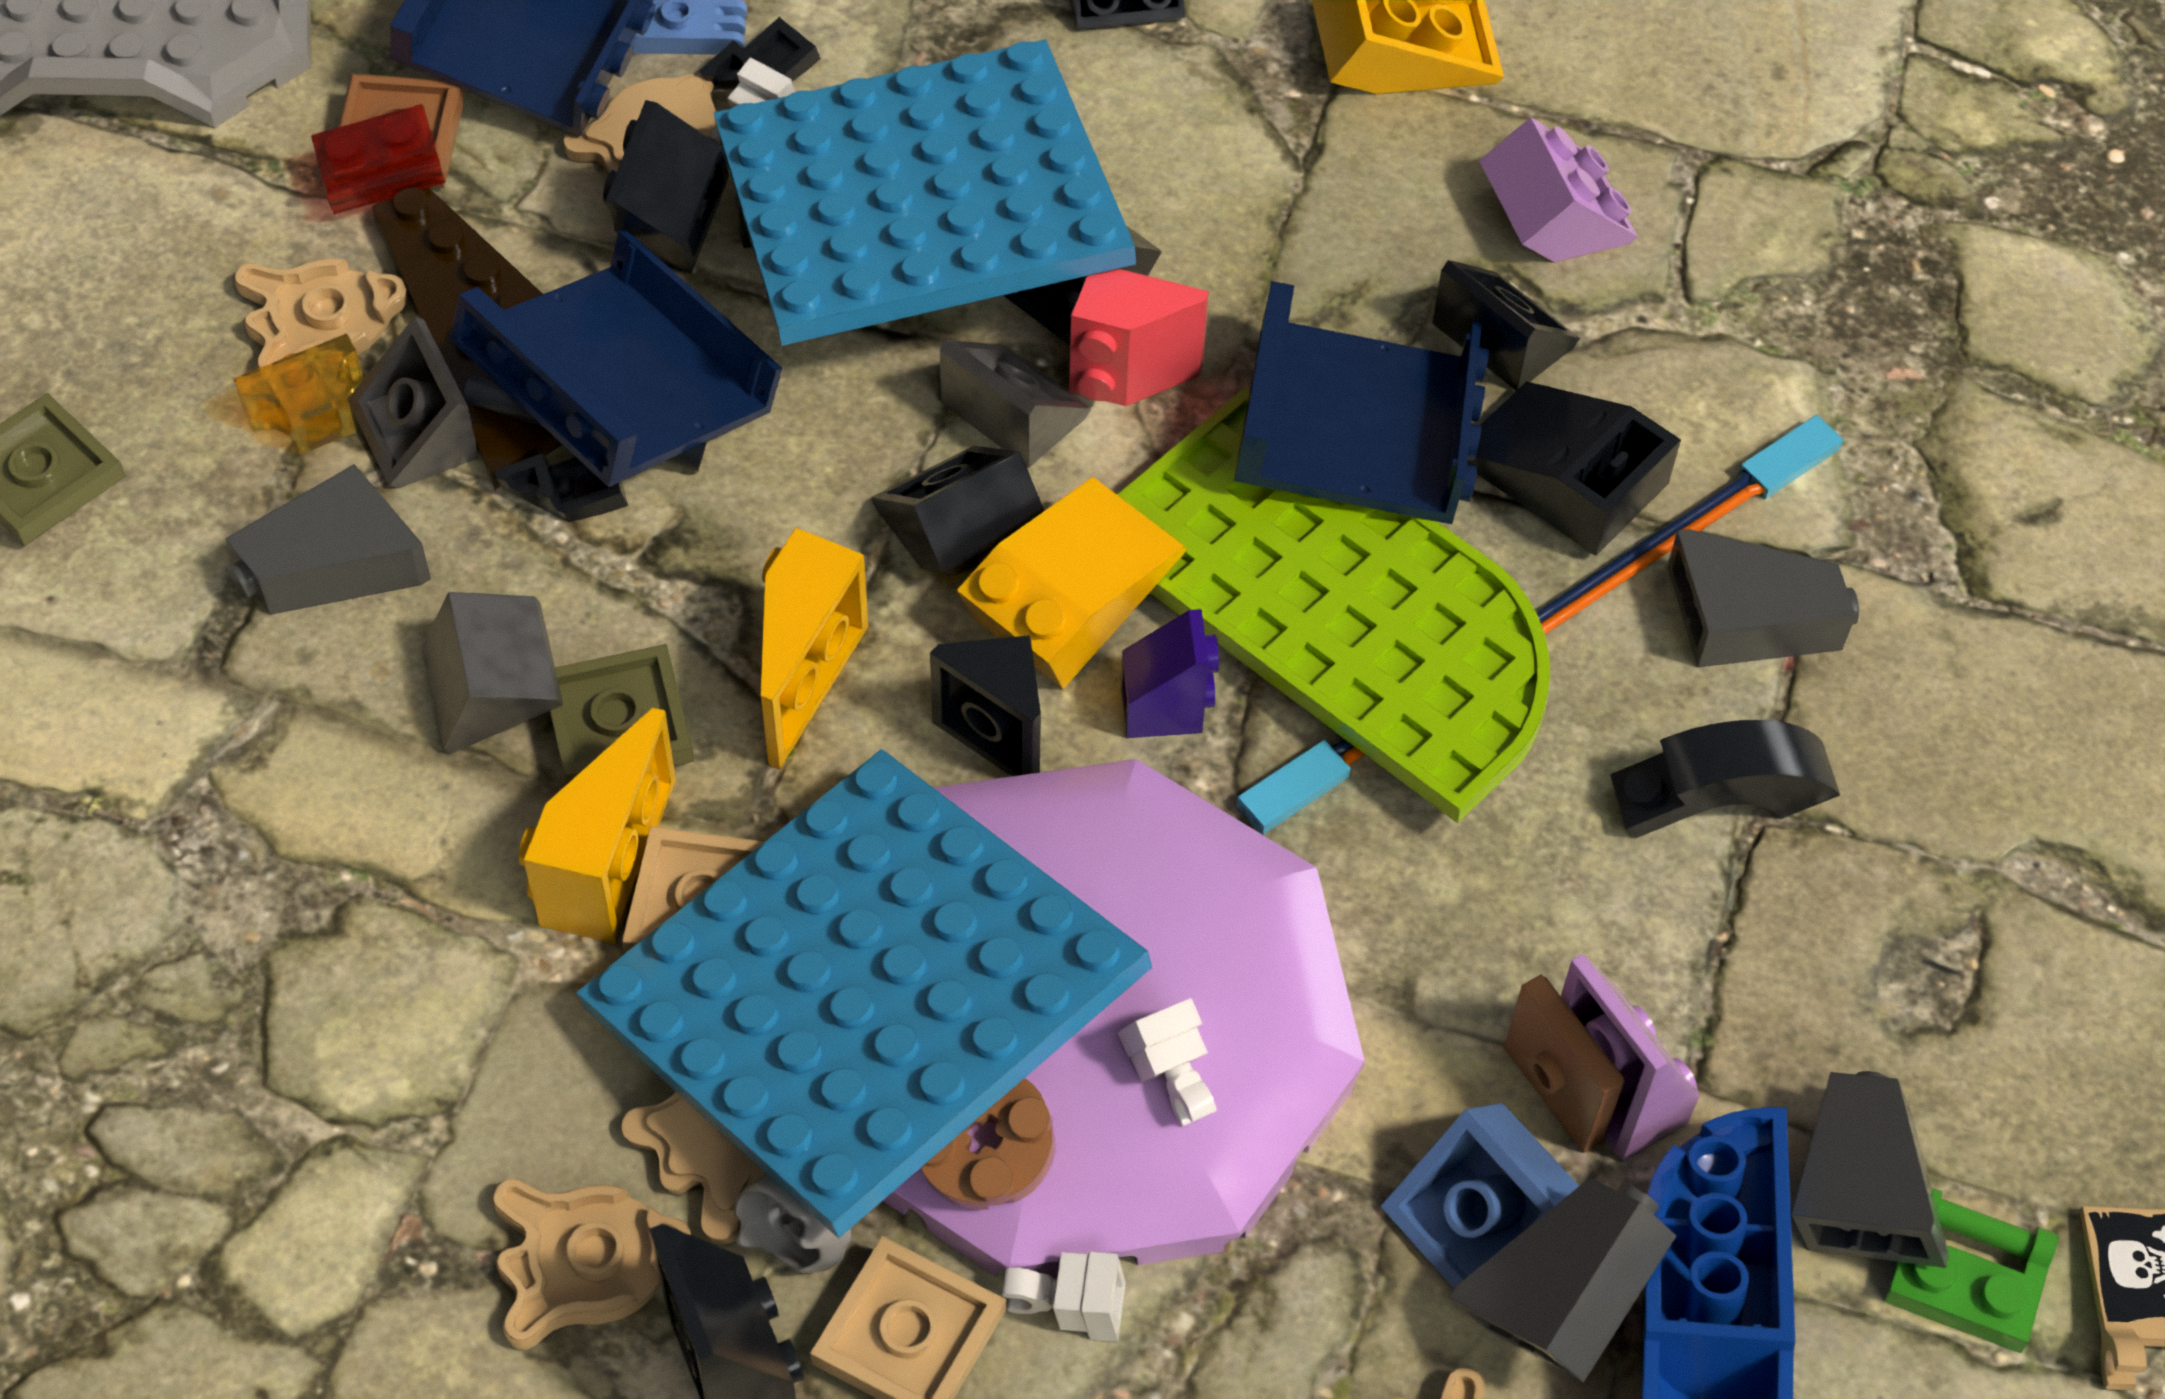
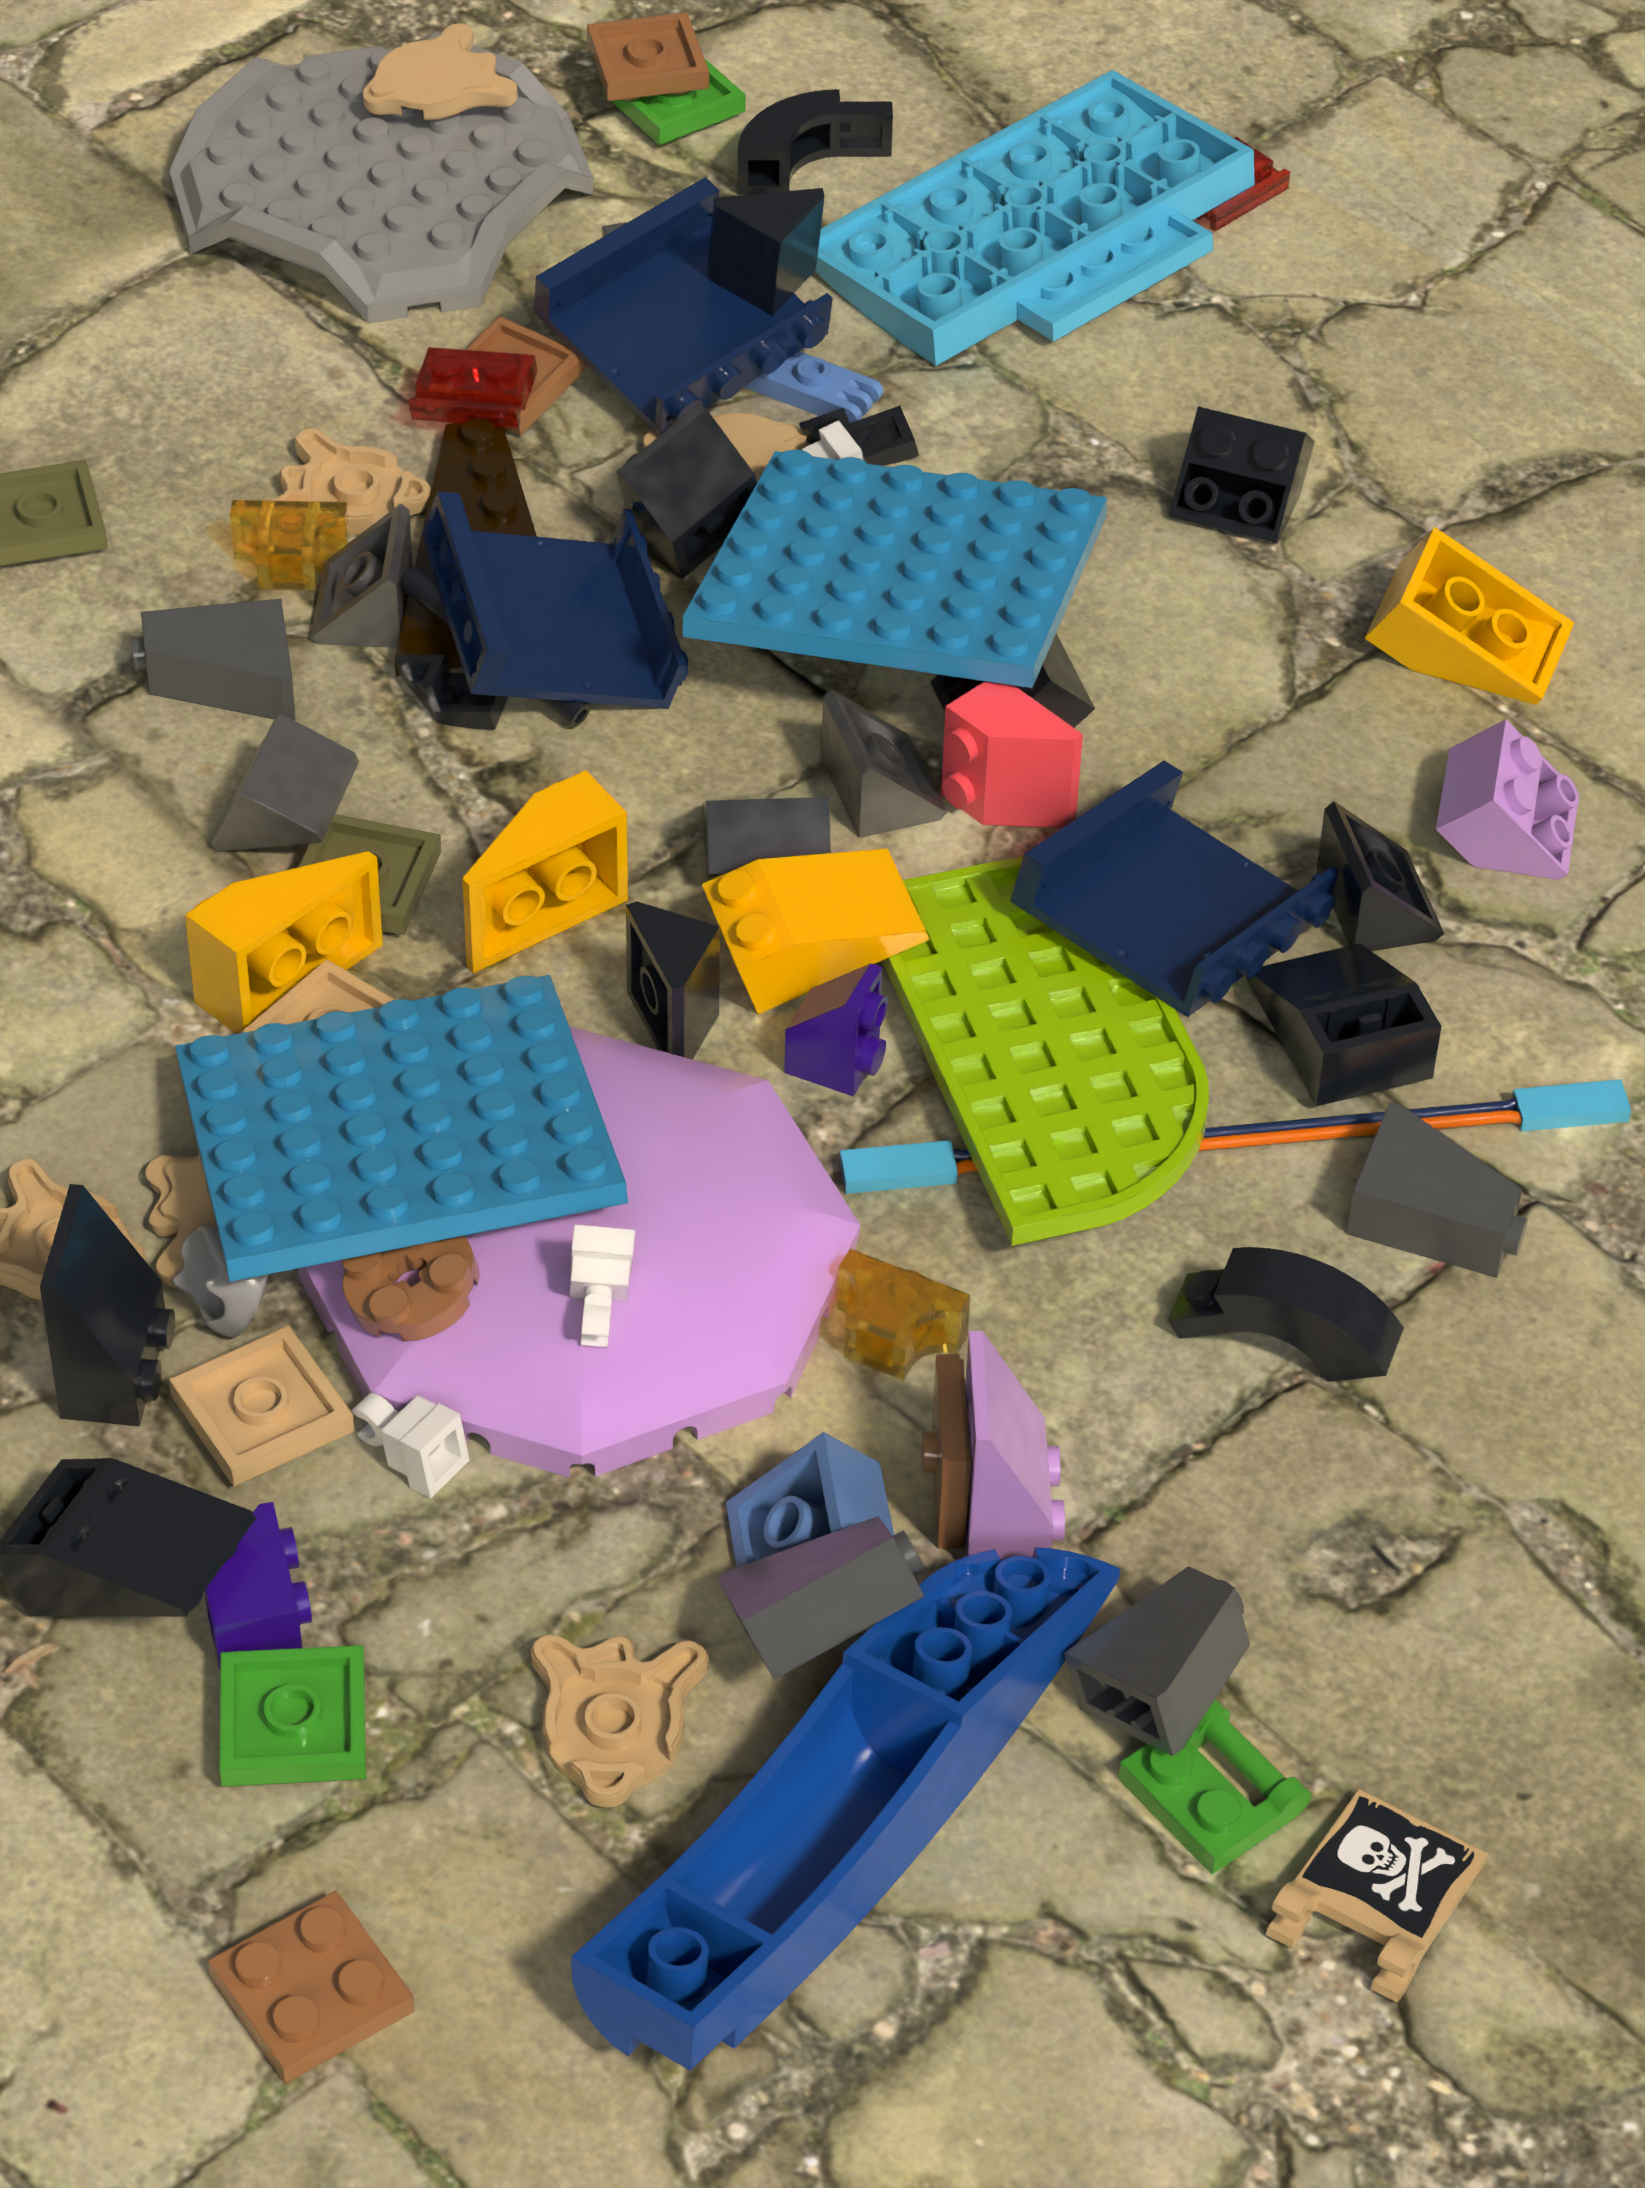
camera: 30 degrees right, 10 degrees down
(1404, 941) = (897, 1314): none -> clear yellow brick

